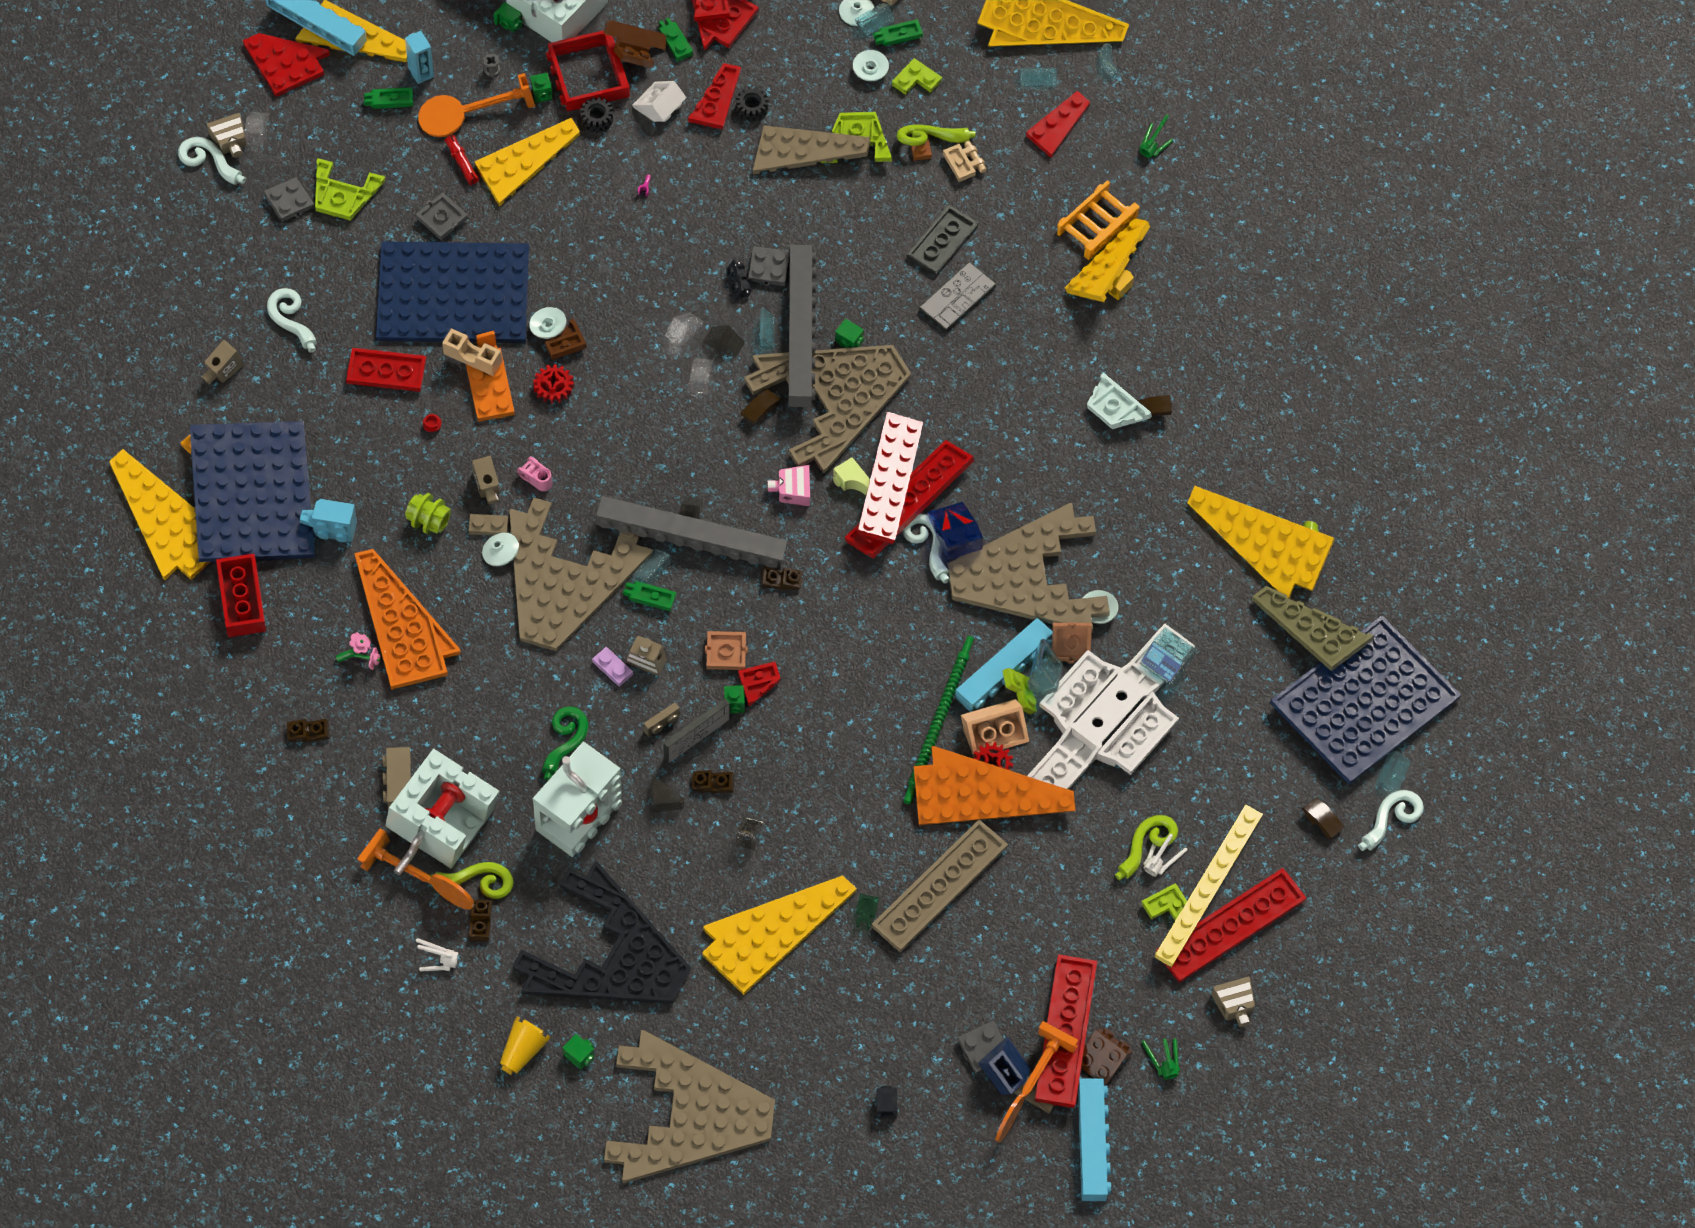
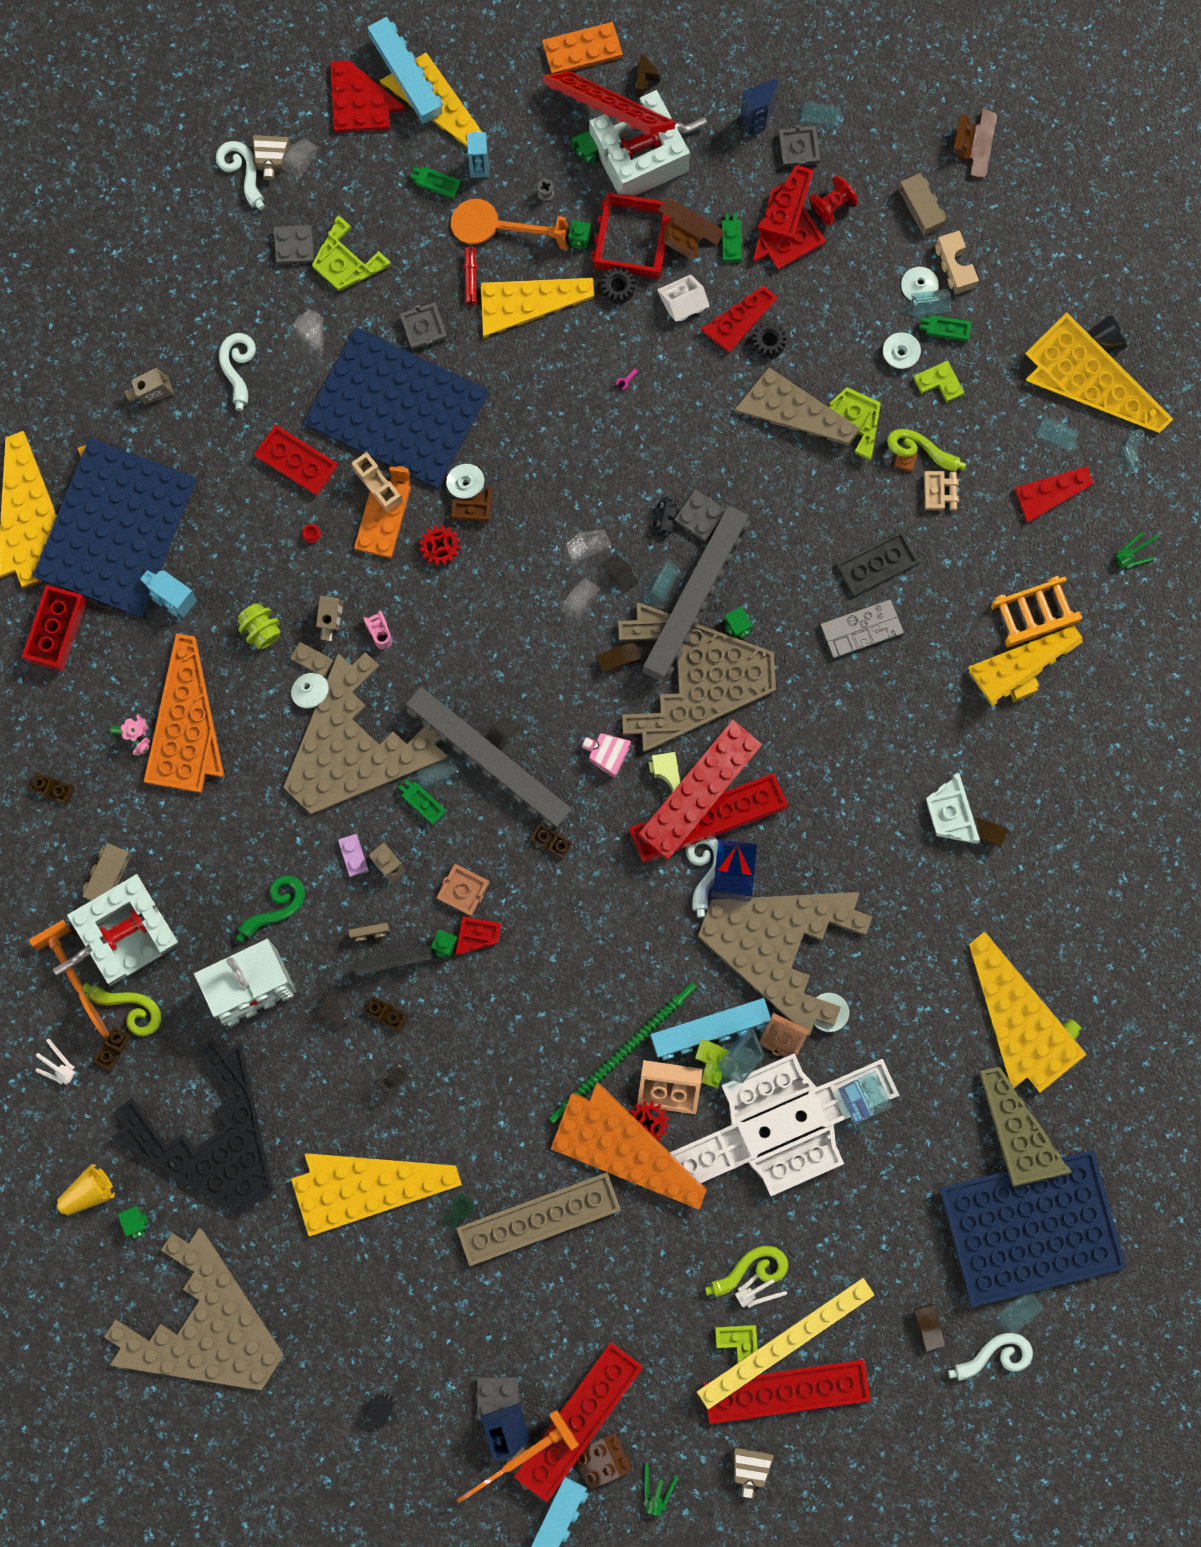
camera: 30 degrees right, 15 degrees up
(343, 260) = (311, 328): none -> clear slope

